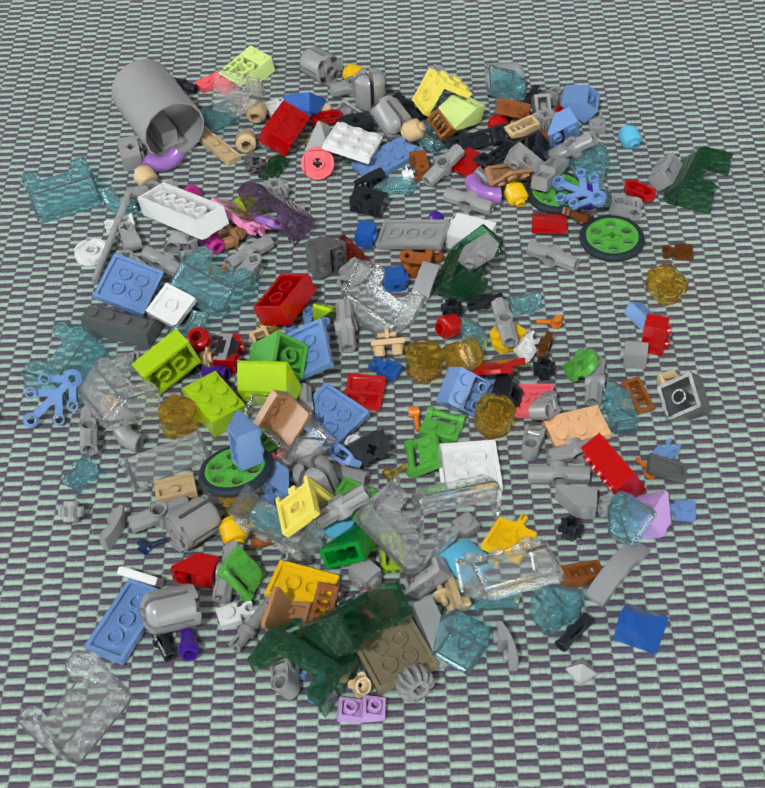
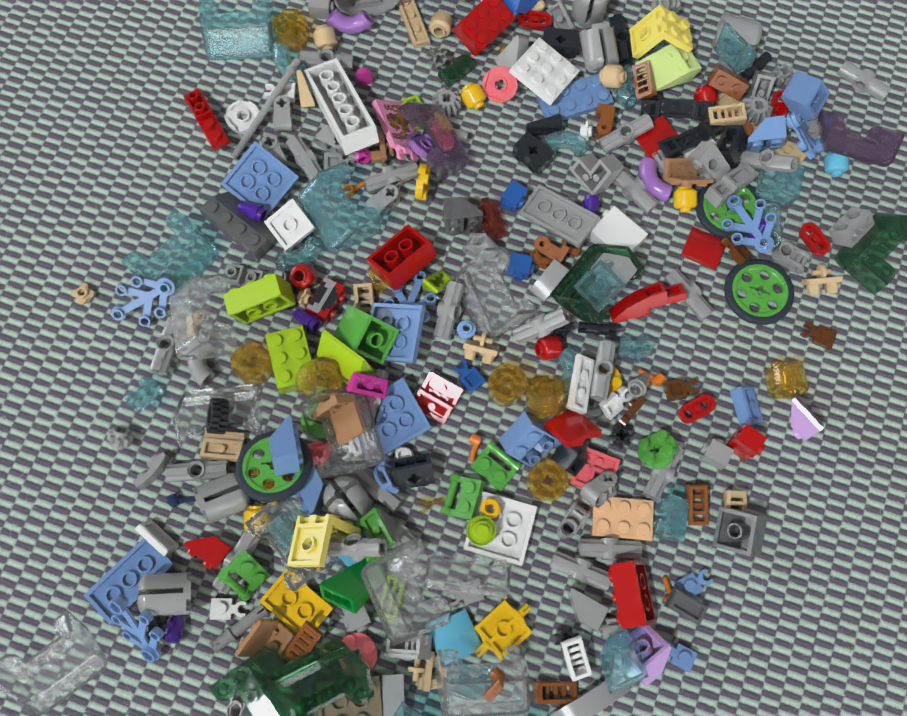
camera: 15 degrees right, 25 degrees up
(56, 260) = (206, 119): none -> red slope
(112, 174) = (291, 29): none -> clear yellow brick
(131, 306) = (253, 211): none -> dark purple cone
(145, 218) = (305, 94): none -> tan slope
(154, 647) = (150, 649): none -> medium blue plant
(162, 459) = (217, 416): none -> black tyre
(243, 390) = (318, 374): none -> clear yellow brick
(279, 238) = (422, 183): none -> yellow plate
(297, 179) = (473, 96): none -> yellow head
(302, 390) = (367, 386): none -> dark pink slope
(366, 336) = (466, 334): none -> light blue plate
(433, 197) = (596, 174): none -> light grey brick
(434, 308) = (541, 325): none -> light grey piece
(451, 467) = (481, 530): none -> lime plate
(452, 446) = (490, 501): none -> yellow plate
(473, 258) = (599, 285): none -> clear light blue slope
(490, 337) = (580, 384): none -> white tile
(514, 267) = (639, 302): none -> red slope
(523, 551) = (497, 686): none -> dark orange arm
(537, 327) = (638, 386): none -> light grey cone
(578, 322) = (678, 389): none -> reddish brown plate
(585, 545) = (580, 671): none -> white slope
(601, 330) = (695, 409): none -> red plate
(606, 131) = (806, 141): none -> medium blue plant
(616, 112) = (876, 148): none -> clear purple windscreen
(623, 82) = (864, 80): none -> light grey piece
(658, 212) = (830, 283): none -> tan hips
(696, 303) = (803, 420): none -> lavender slope

